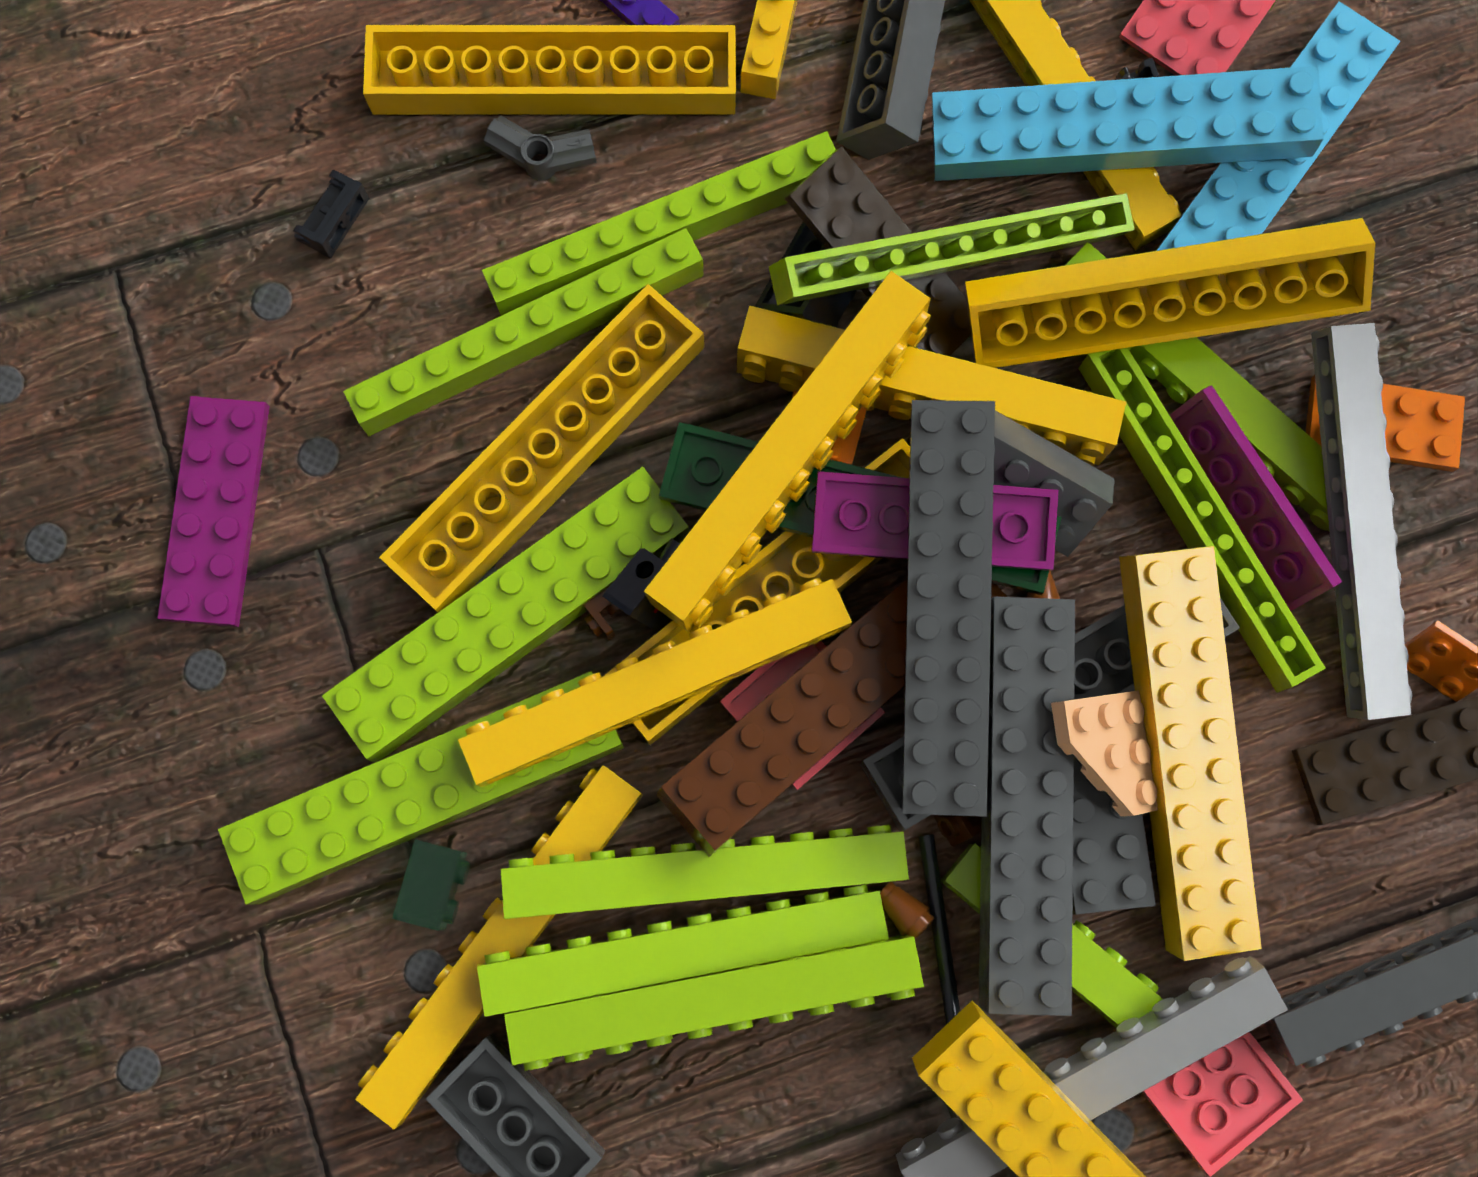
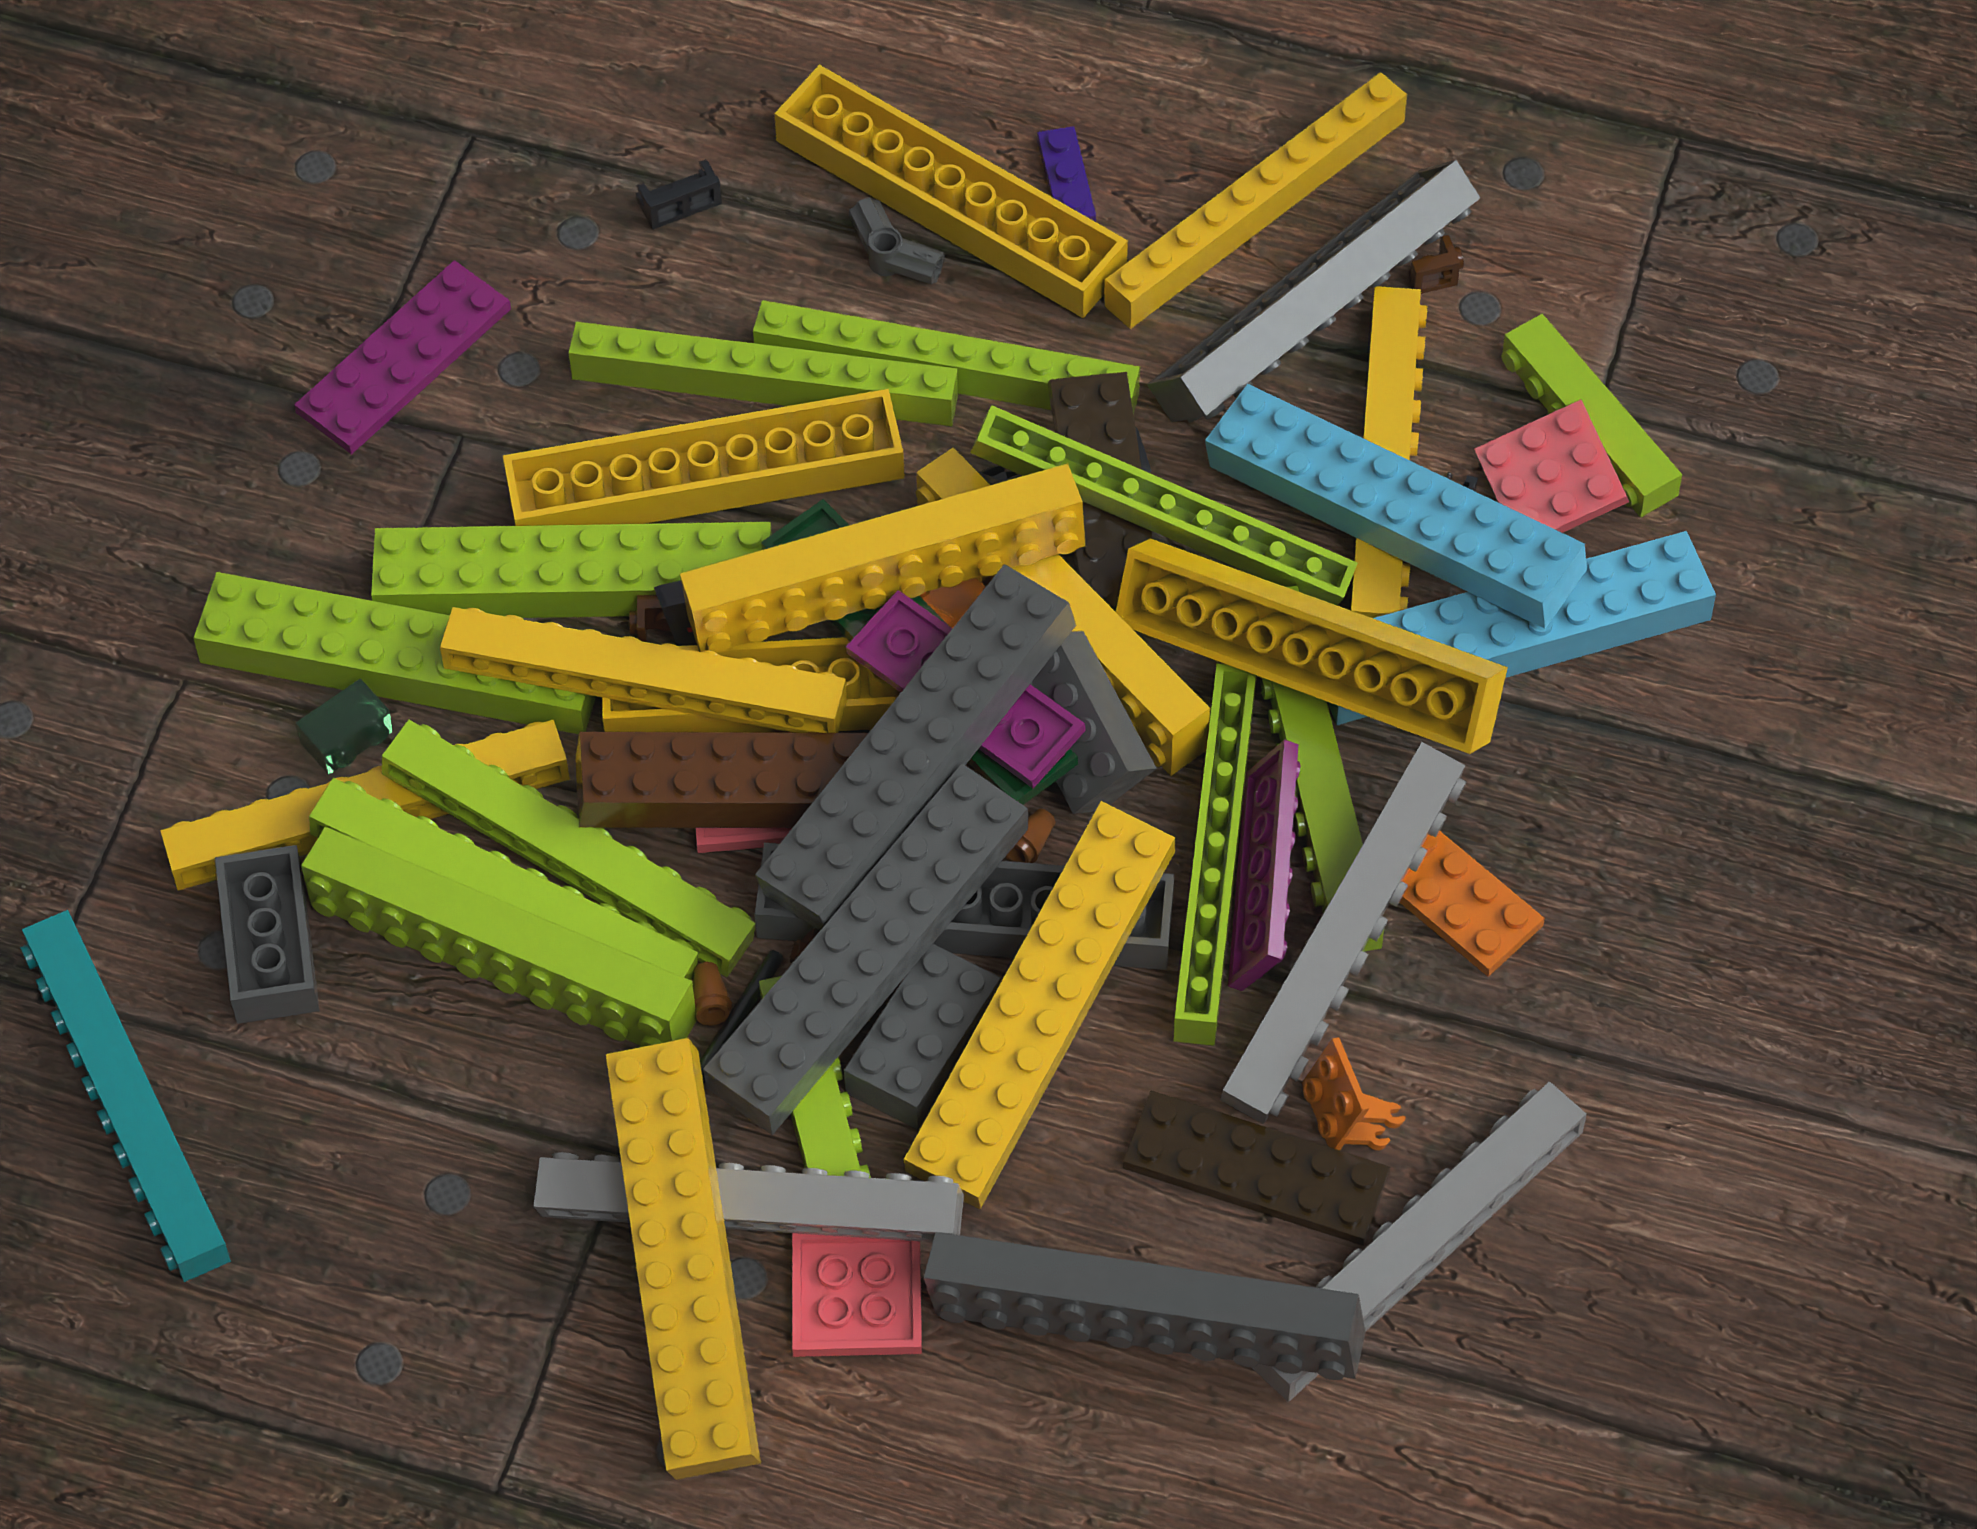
camera: 40 degrees right, 20 degrees down
(1111, 746) = (968, 941): light nougat plate -> none

